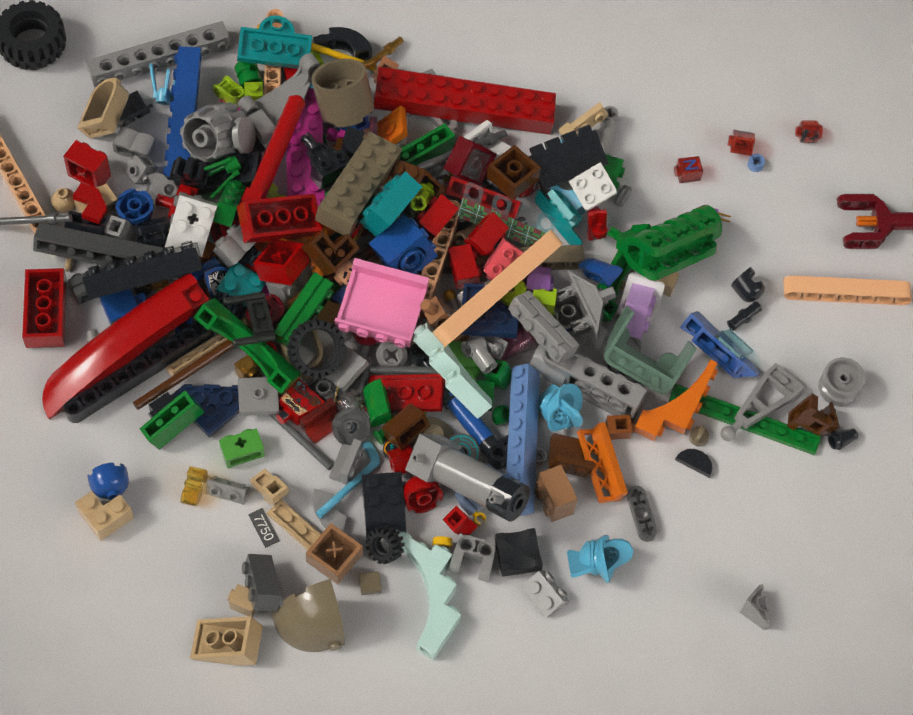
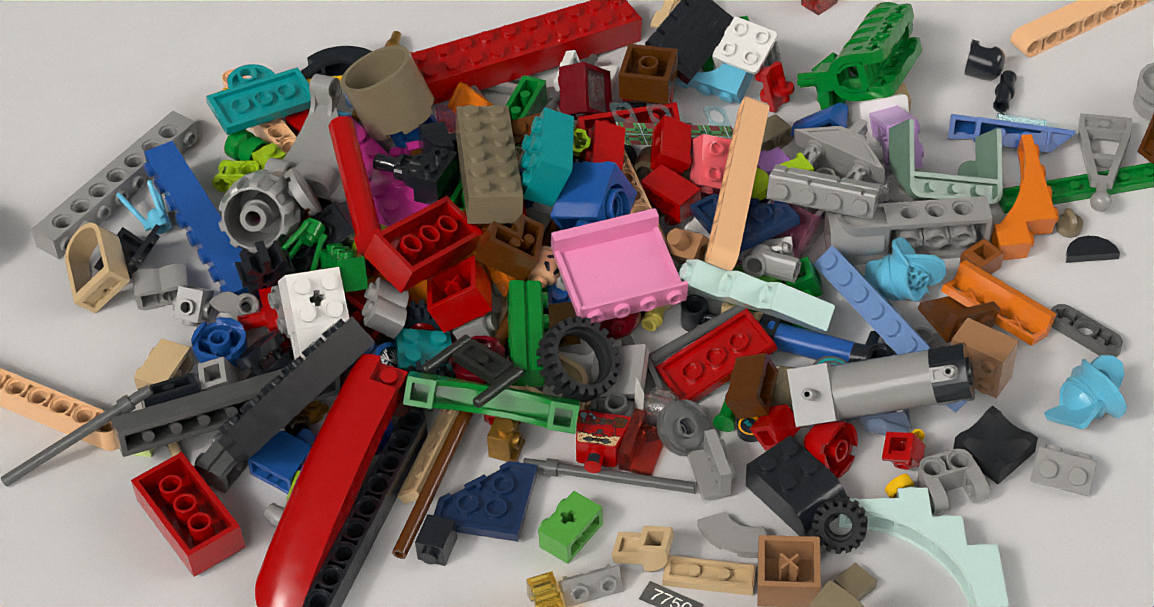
camera: 25 degrees left, 15 degrees down
(63, 200) = (113, 387): tan brick -> none
(87, 164) = (120, 332): red brick -> none
(95, 206) = (171, 365): red tile -> none
(172, 420) = (461, 540): green brick -> none
(257, 397) = (544, 458): light grey plate -> none
(374, 463) = (742, 456): medium azure piece -> none
(377, 403) = (694, 382): green brick -> none
(381, 354) = (672, 323): light grey gear -> none
(500, 415) = (844, 320): green tile -> none
(564, 213) = (722, 91): teal plate -> none

